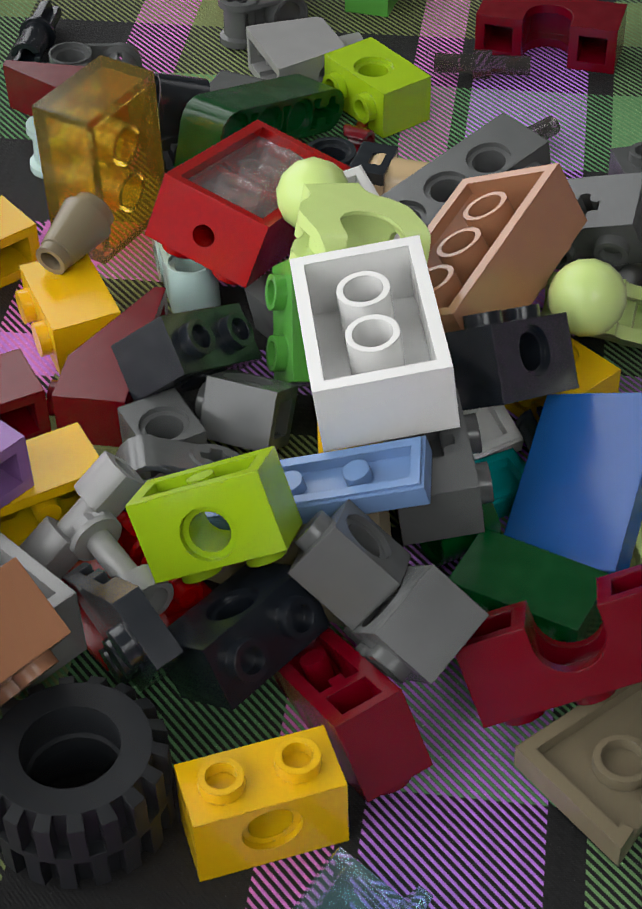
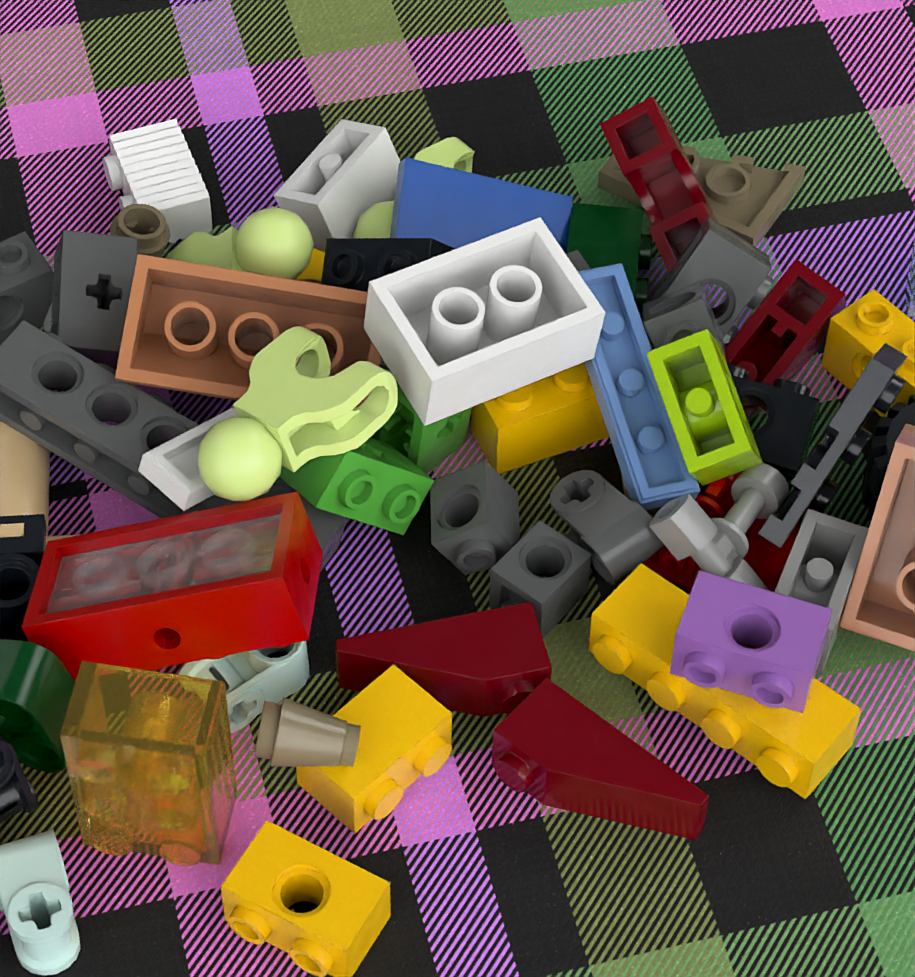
camera: 115 degrees left, 10 degrees up
(185, 349) = (408, 578): black brick -> none

